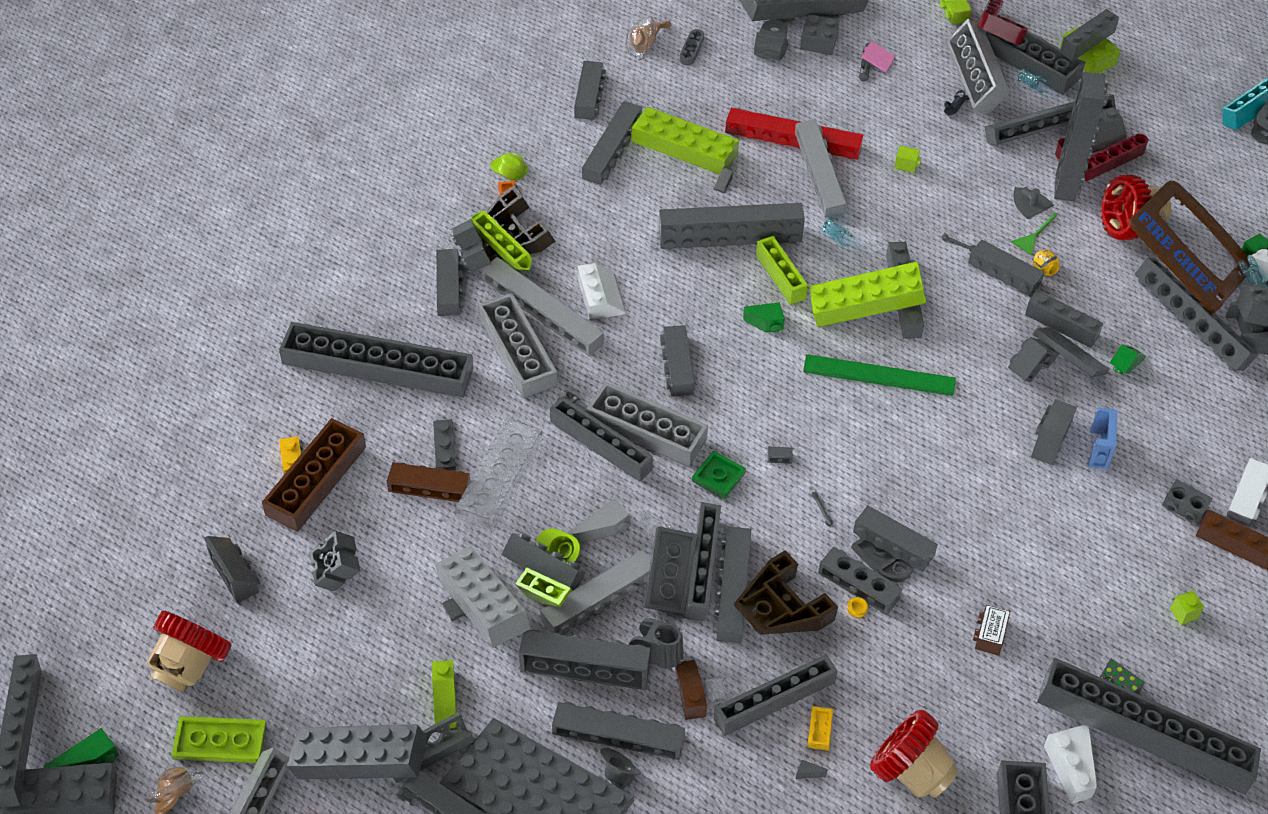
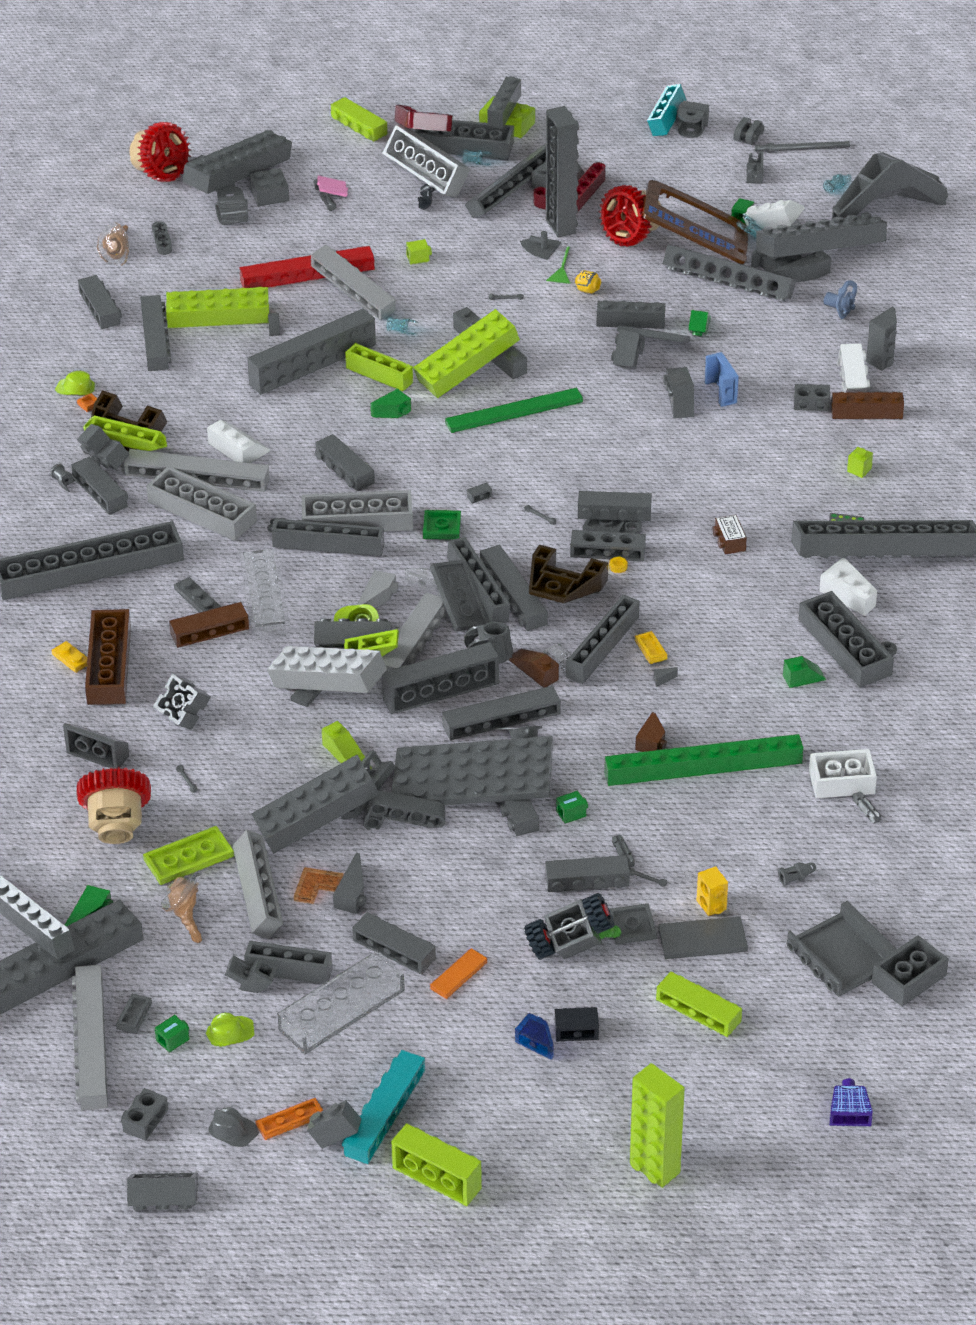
camera: 30 degrees left, 10 degrees down
(289, 632) = (180, 769): none -> dark grey hinge
(426, 258) = (64, 478): none -> dark grey piece
(915, 757) = (738, 625): piece -> none
(1006, 267) = (558, 297): dark grey brick -> none

